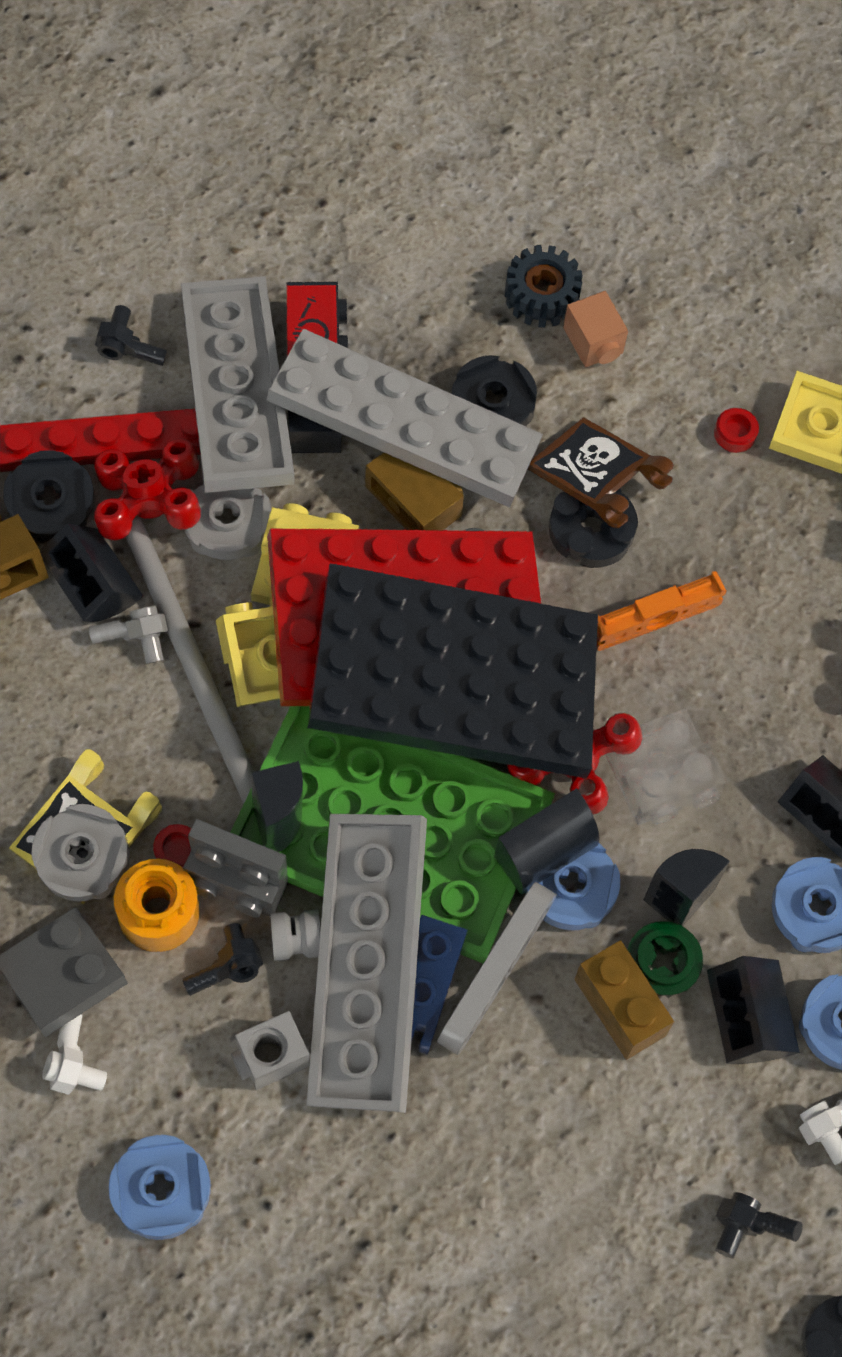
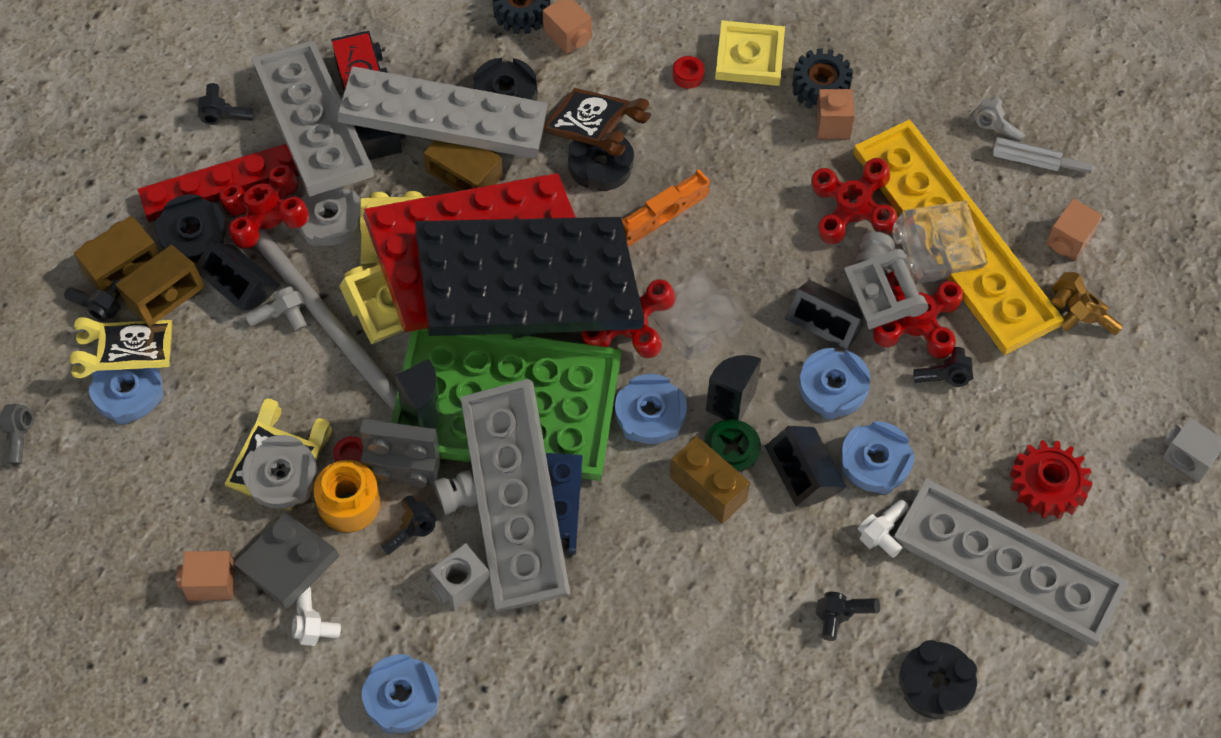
camera: 10 degrees left, 5 degrees down
(496, 968) = (611, 479): light grey beam -> none
(547, 841) = (625, 380): black brick -> none

